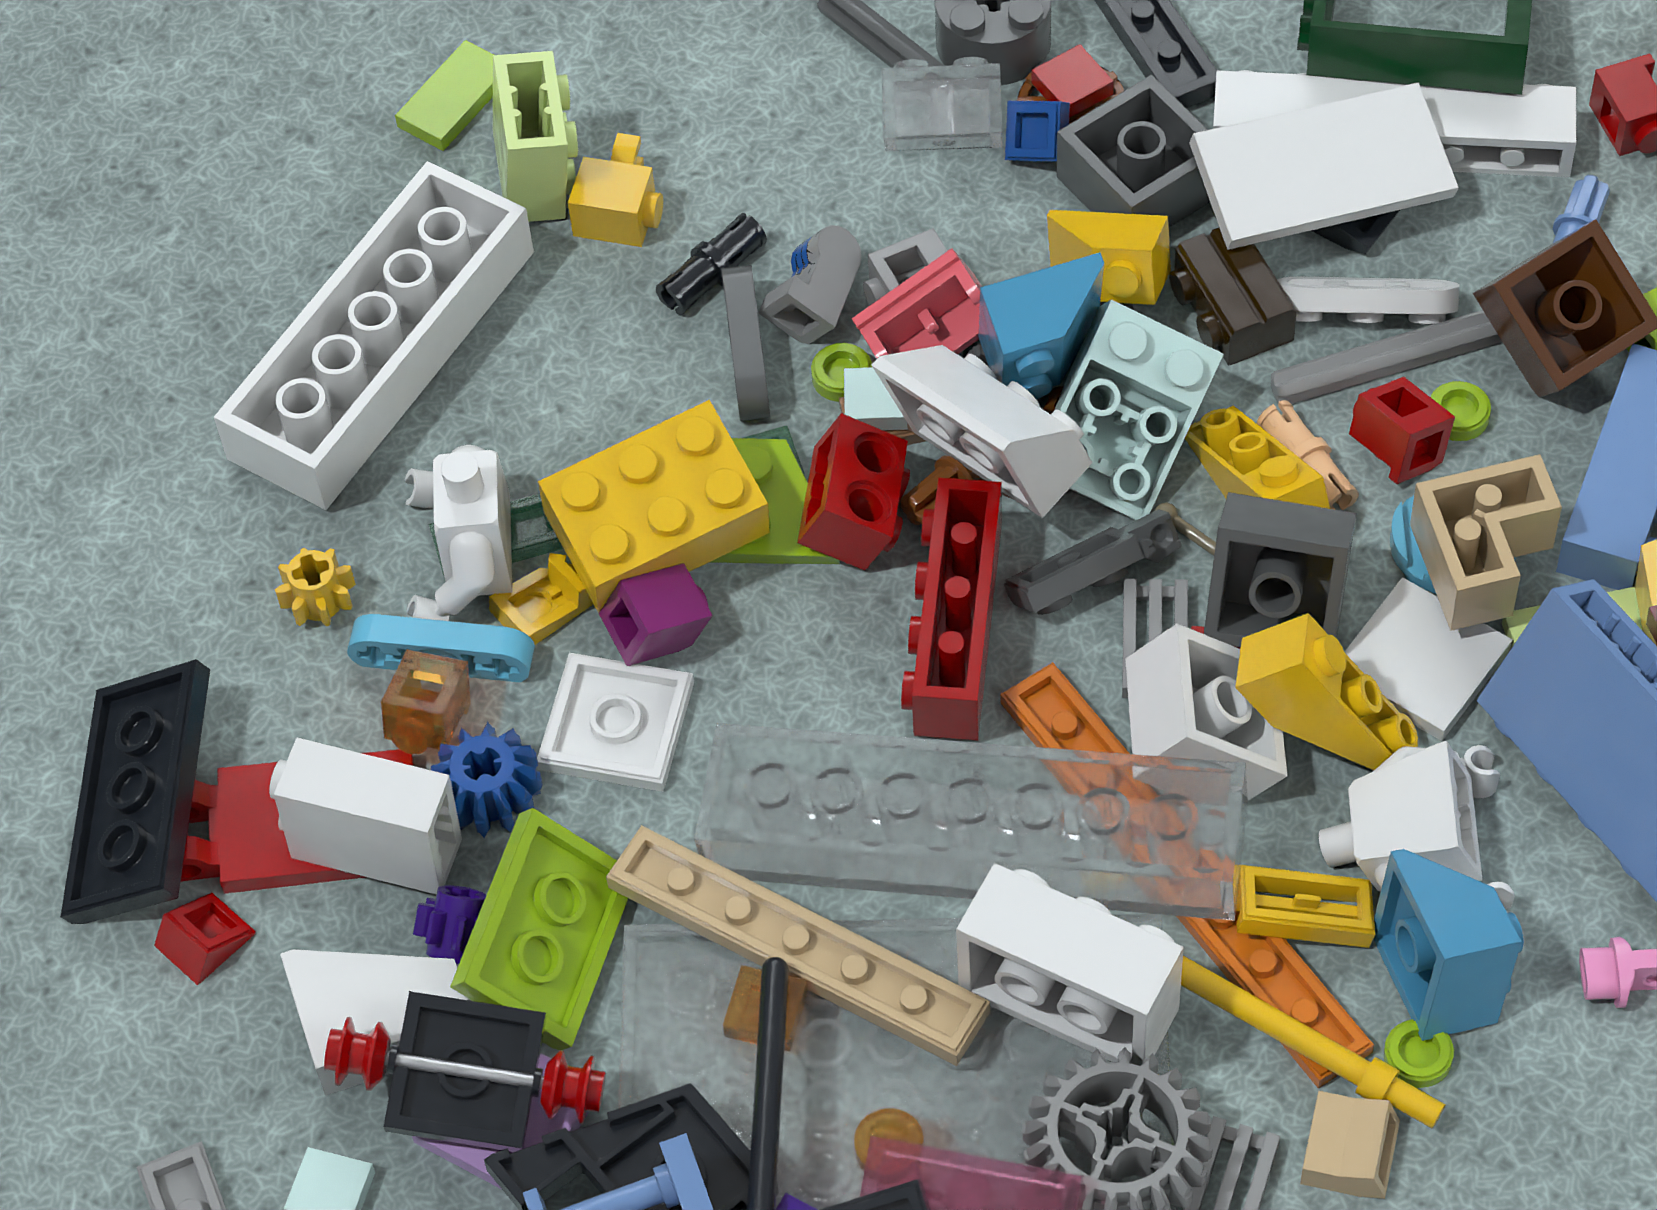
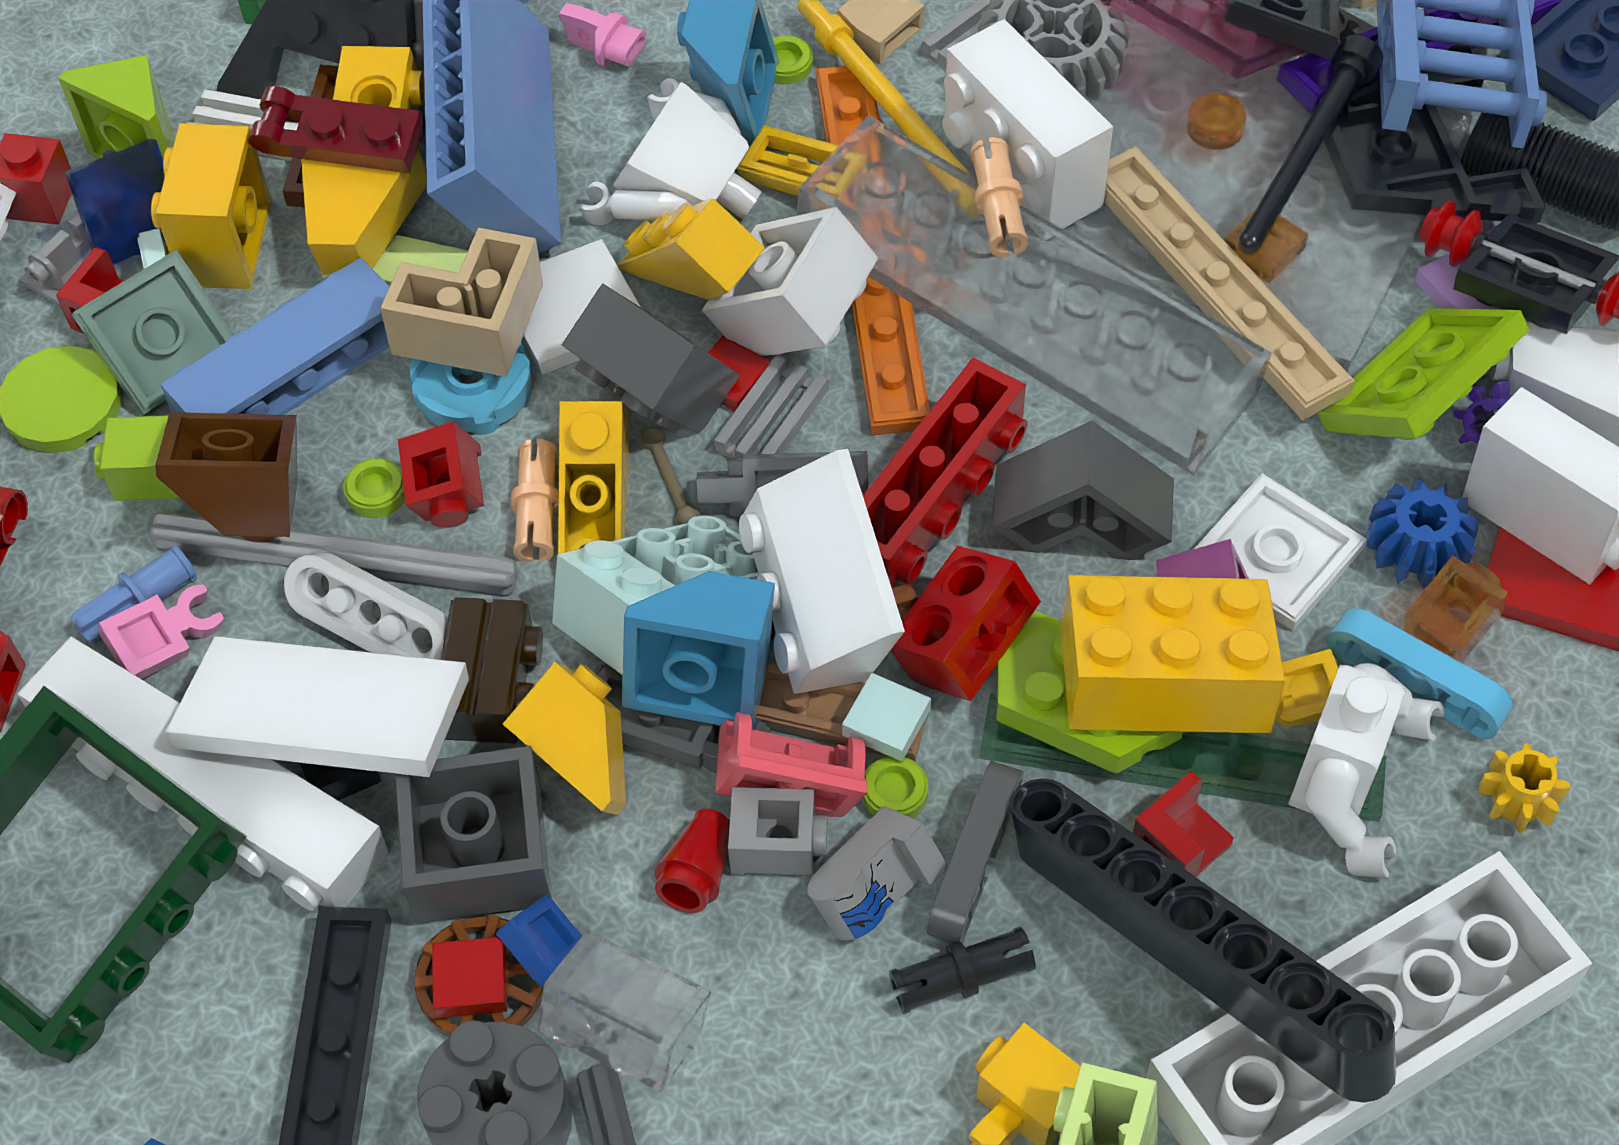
camera: 155 degrees left, 0 degrees up
(518, 271) = (1207, 941): none -> black beam
(591, 420) = (1183, 828): none -> red panel
(806, 638) = (1087, 488): none -> dark grey brick
(964, 227) = (694, 863): none -> red cone
(1038, 835) = (998, 197): none -> light nougat pin
(1526, 201) = (152, 637): none -> bright pink plate

